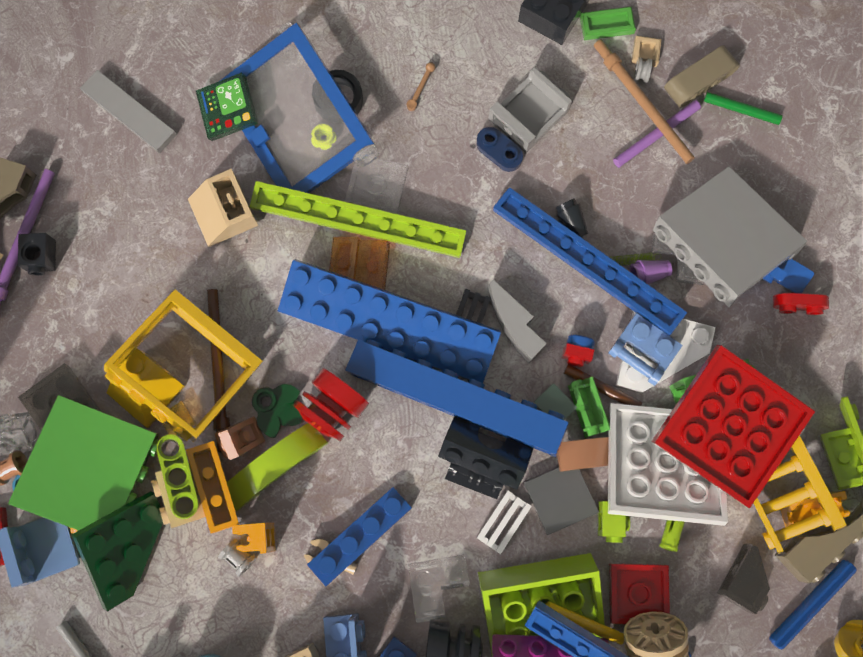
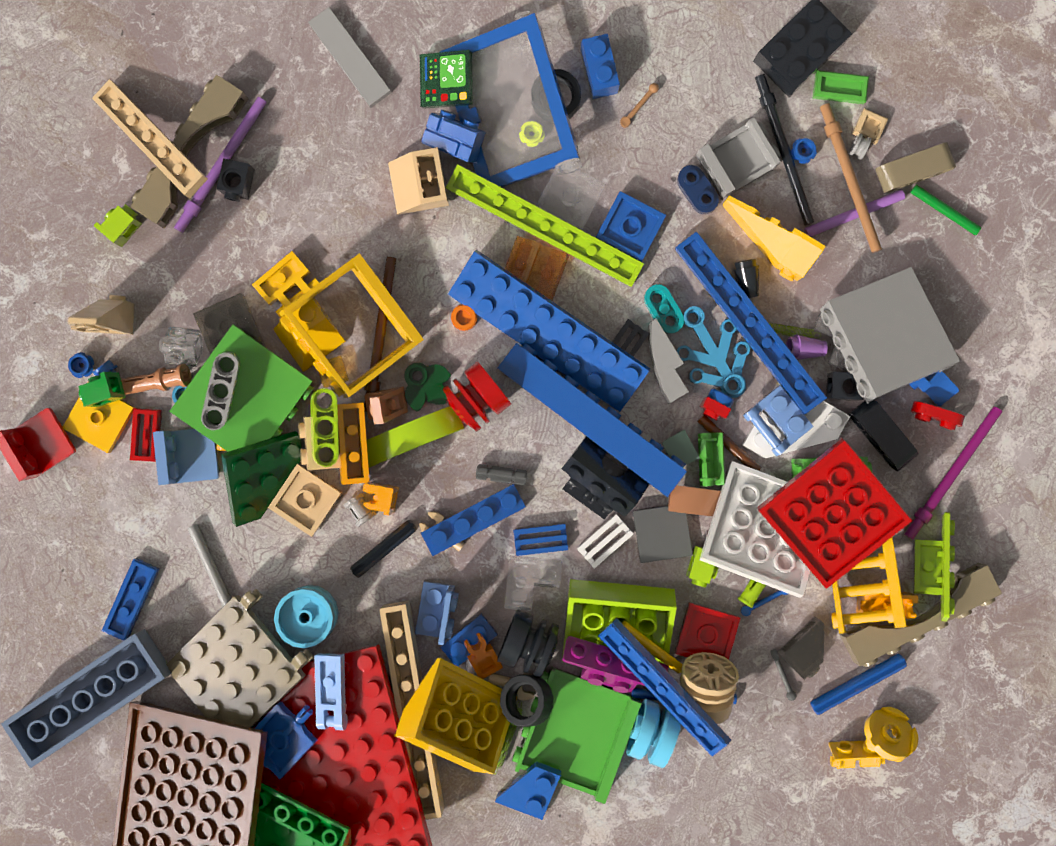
camera: 20 degrees right, 10 degrees up
(49, 479) = (214, 402): none -> light grey beam
(103, 339) = (281, 279): none -> yellow plate
(176, 563) = (305, 500): none -> tan plate
(246, 157) = (453, 136): none -> brick
(271, 593) = (383, 548): none -> black axle
(299, 331) = (463, 317): none -> orange tile
(373, 58) = (600, 66): none -> blue brick
(377, 480) = (501, 474): none -> dark grey axle
(414, 547) = (519, 552): none -> blue tile
(443, 198) = (630, 226): none -> blue plate
(499, 270) = (664, 309): none -> teal plate
(543, 53) = (768, 103): none -> black bar
(563, 302) = (716, 356): none -> dark azure plant
(590, 81) = (806, 144): none -> blue plate
(599, 180) = (787, 250): none -> yellow wedge
(671, 556) = (746, 611): none -> blue hinge
(691, 303) = (835, 389): none -> black brick
(745, 634) = (791, 695): none -> dark grey hinge
(754, 336) = (883, 434): none -> black beam
(822, 404) = (924, 514): none -> magenta bar

